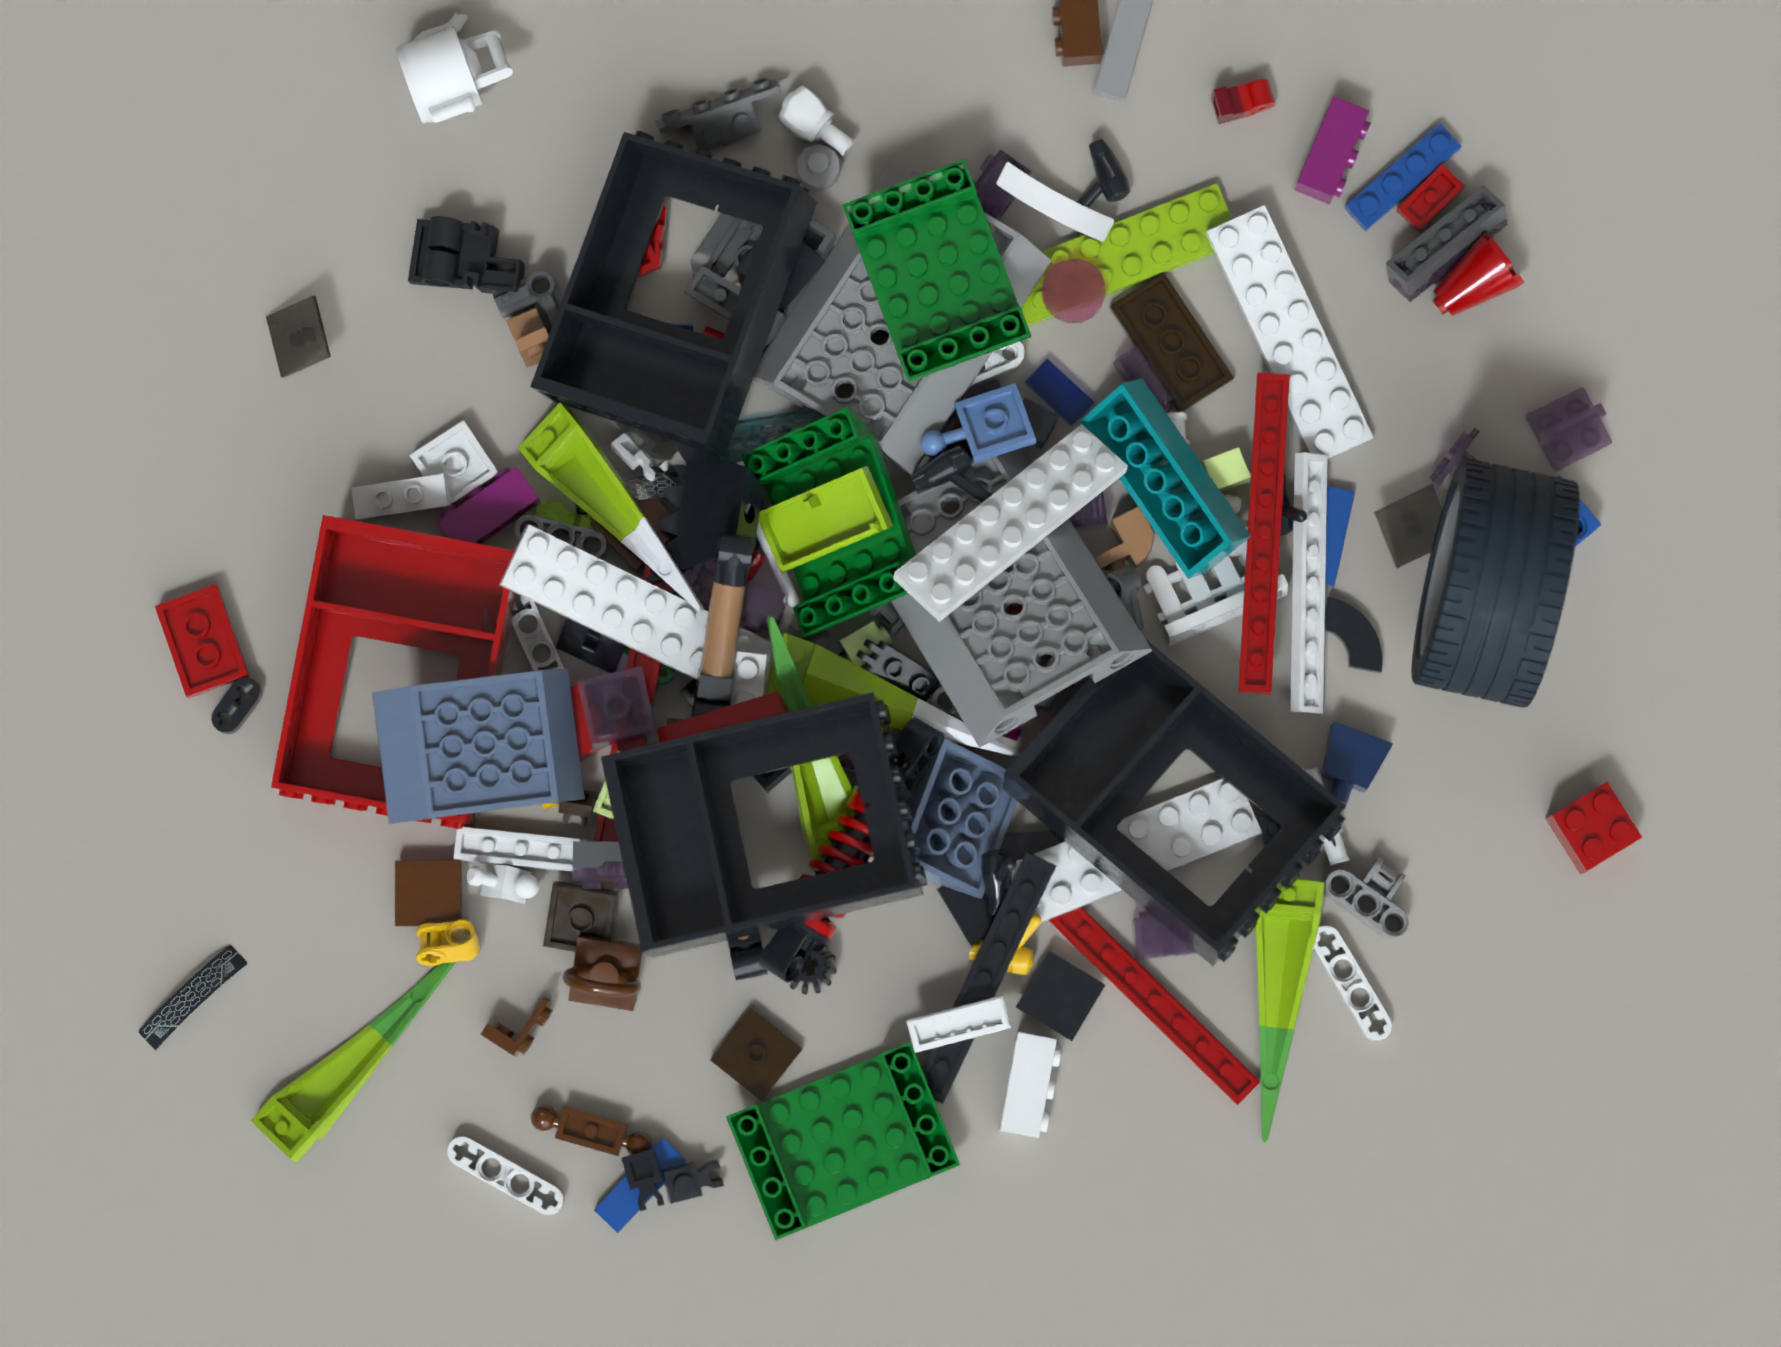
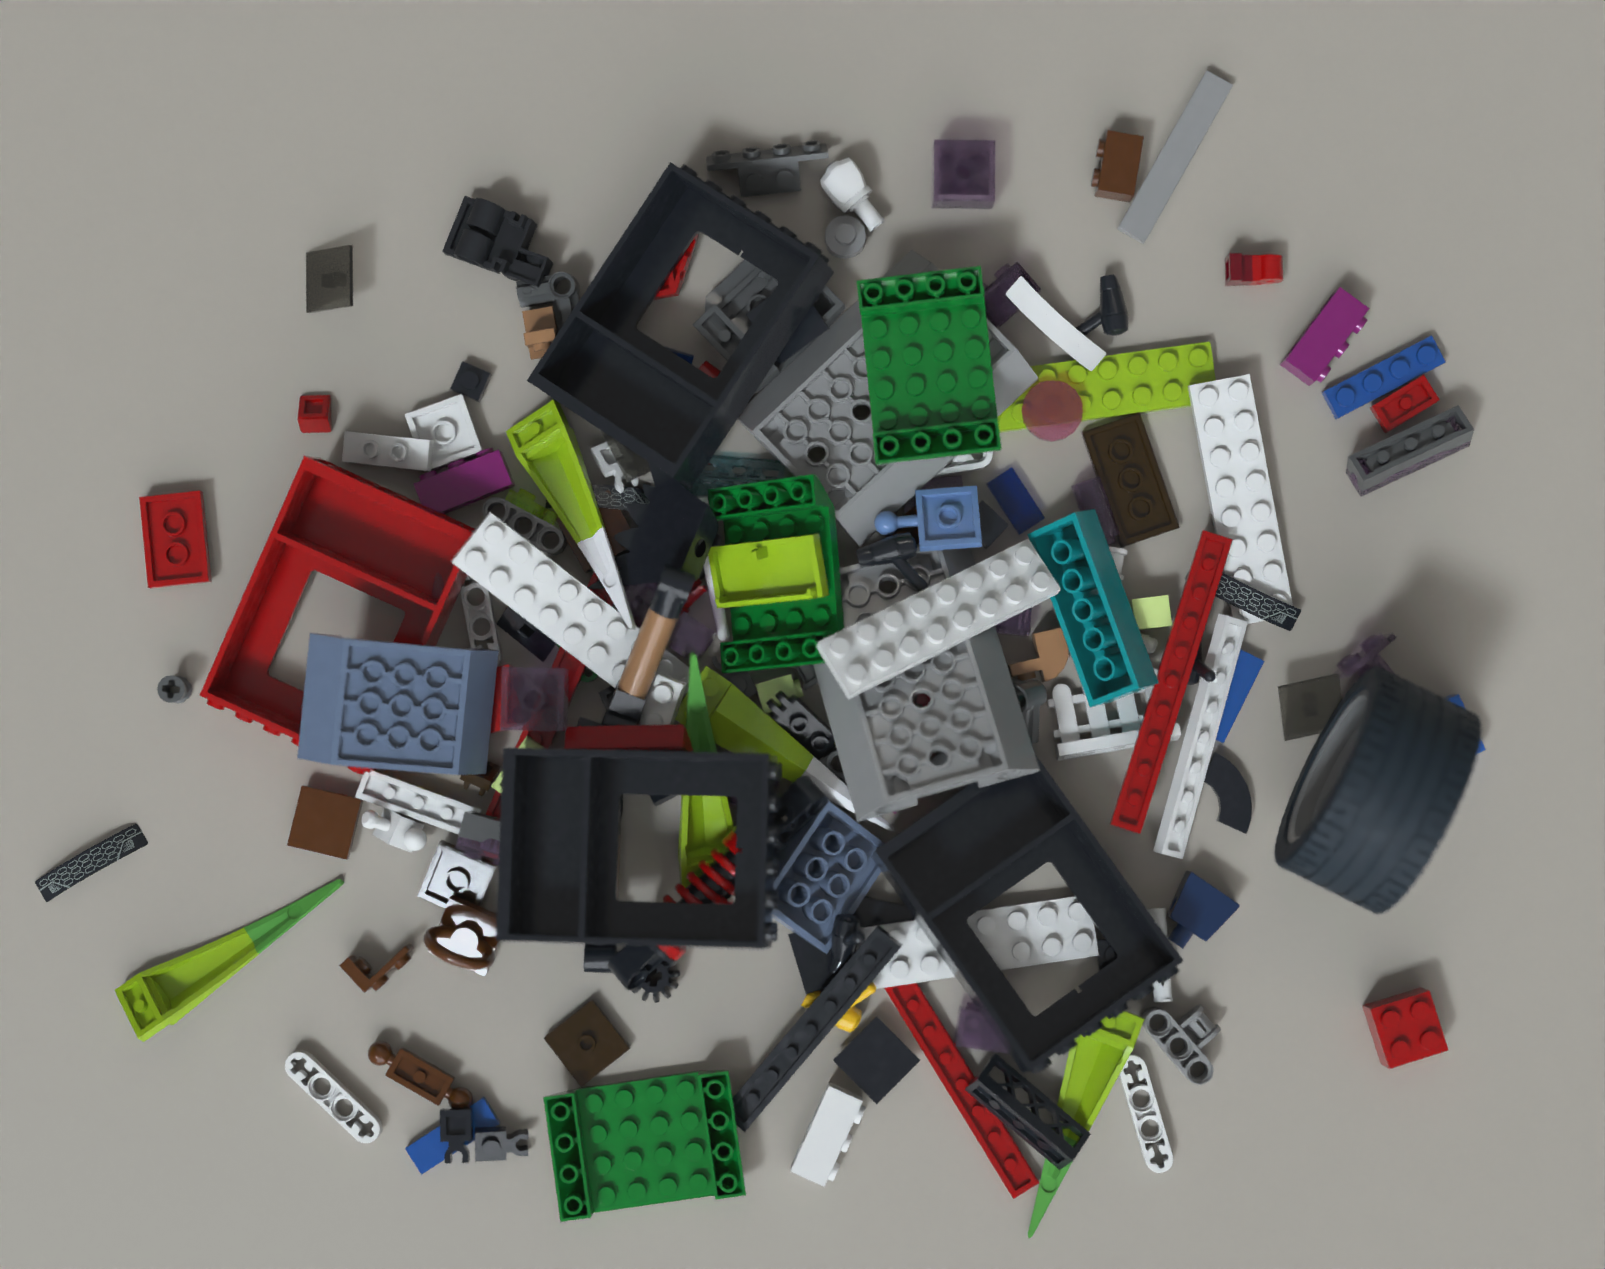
camera: 20 degrees right, 5 degrees up
(230, 700) = (188, 600): black beam -> none
(231, 788) = (170, 697): none -> dark grey bush
(315, 478) = (315, 414): none -> red slope
(444, 942) = (324, 870): yellow piece -> none
(446, 70) = (521, 66): white piece -> none
(469, 406) = (471, 381): none -> black plate
(923, 75) = (963, 174): none -> clear purple brick
(959, 1023) = (776, 1066): white plate -> none
(1227, 1014) = (1021, 1119): none -> black fence
(1331, 434) = (1256, 602): none -> black sticker
(1476, 278) = (1429, 490): red cone -> none
(1569, 428) = (1478, 650): clear purple bracket -> none

